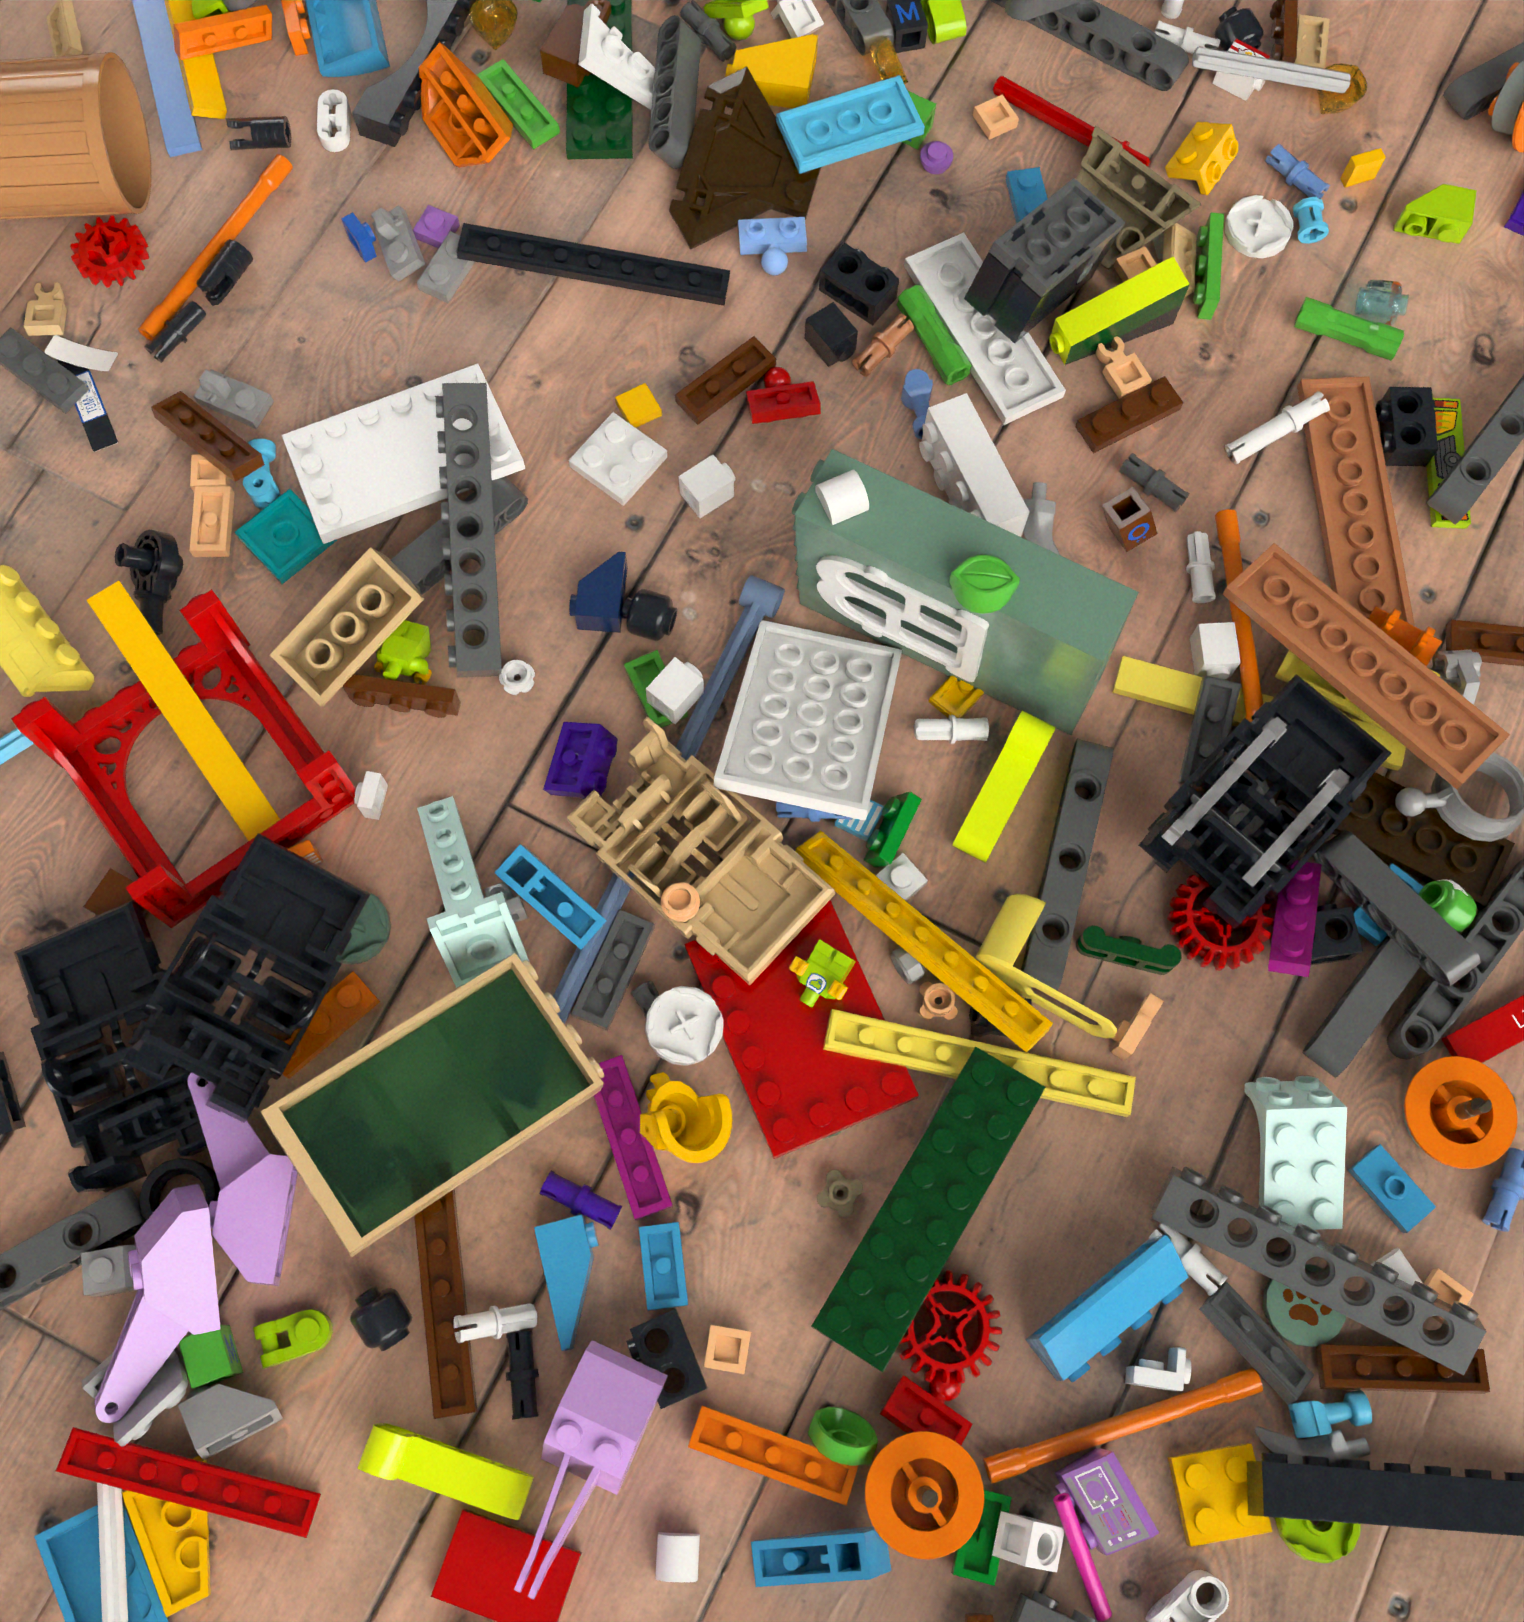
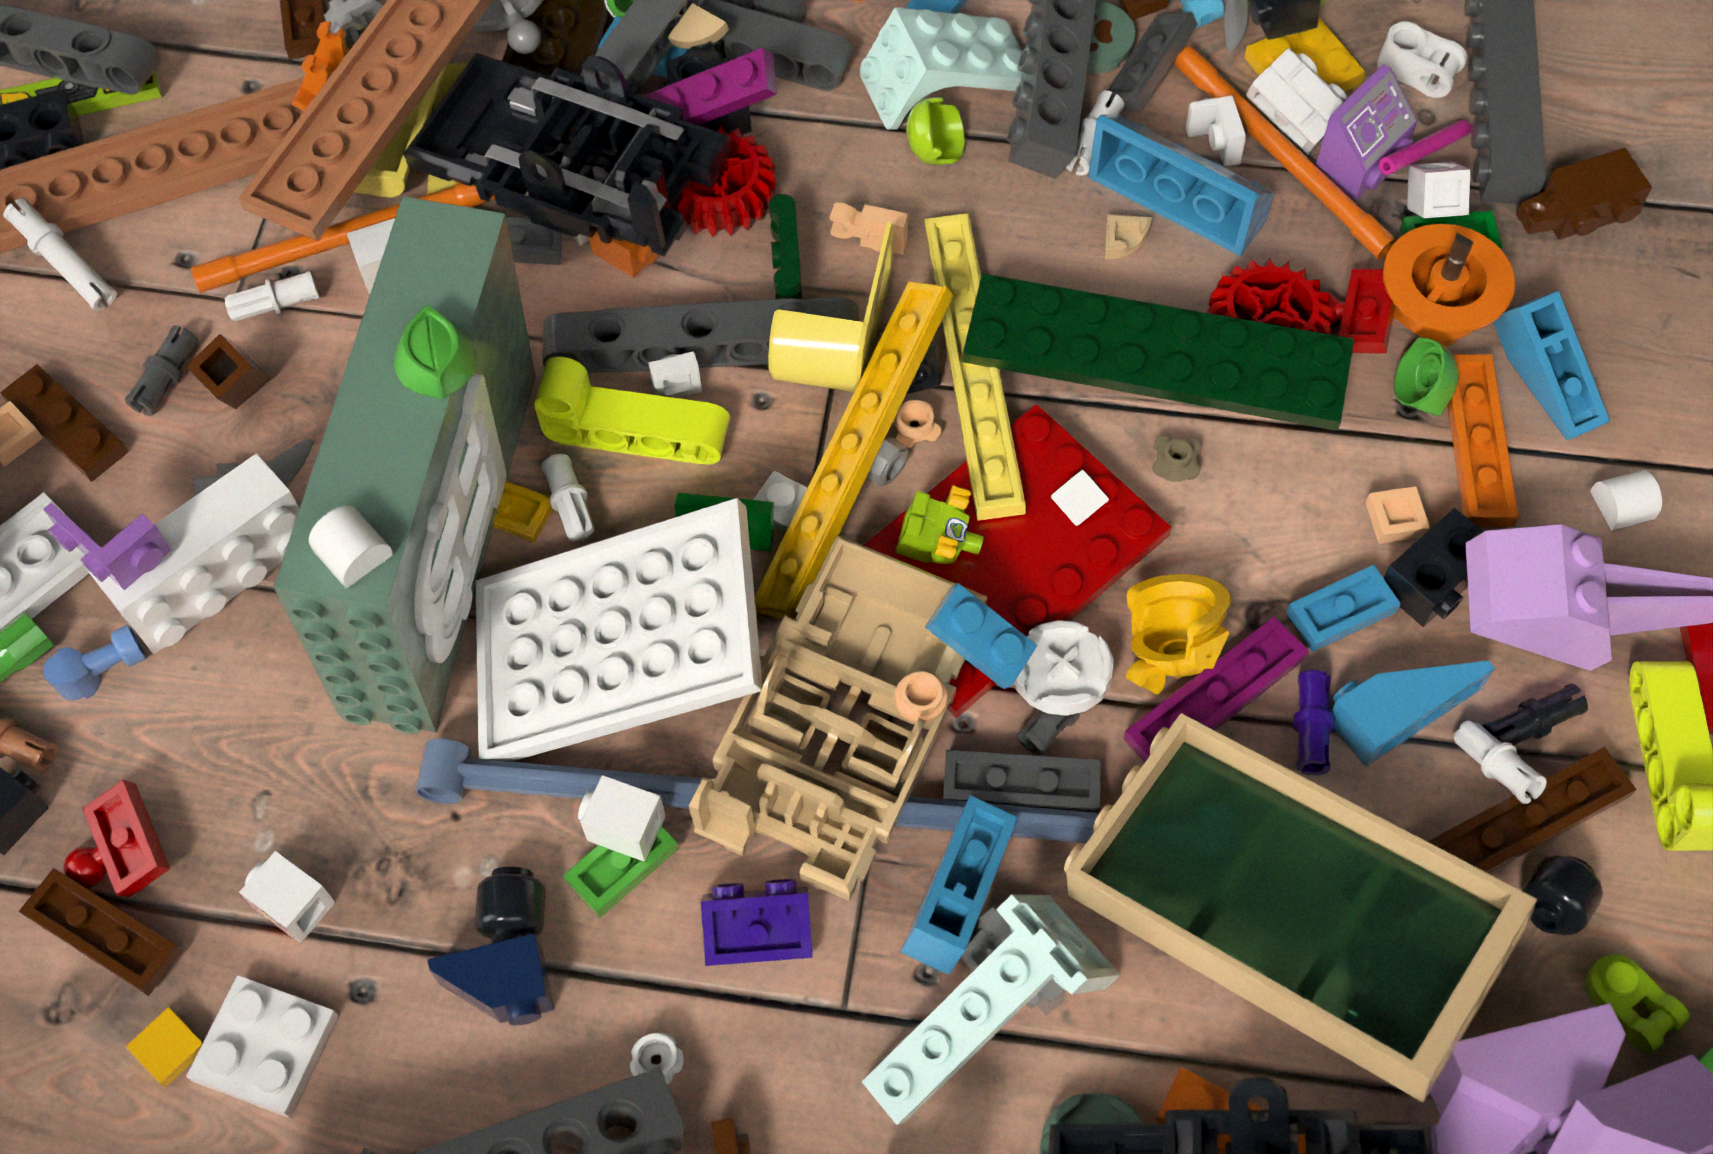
camera: 105 degrees left, 10 degrees down
(715, 963) = (981, 636): none -> dark azure plate
(820, 1093) = (1079, 497): none -> white sticker
(959, 408) = (123, 558): none -> medium lavender bracket
(1035, 831) = (676, 375): none -> white plate
(1073, 1243) = (1124, 235): none -> tan tile
(1163, 1455) = (1296, 99): none -> white brick
(1220, 1115) = (935, 132): none -> lime hair
(1378, 941) = (697, 28): none -> tan tile

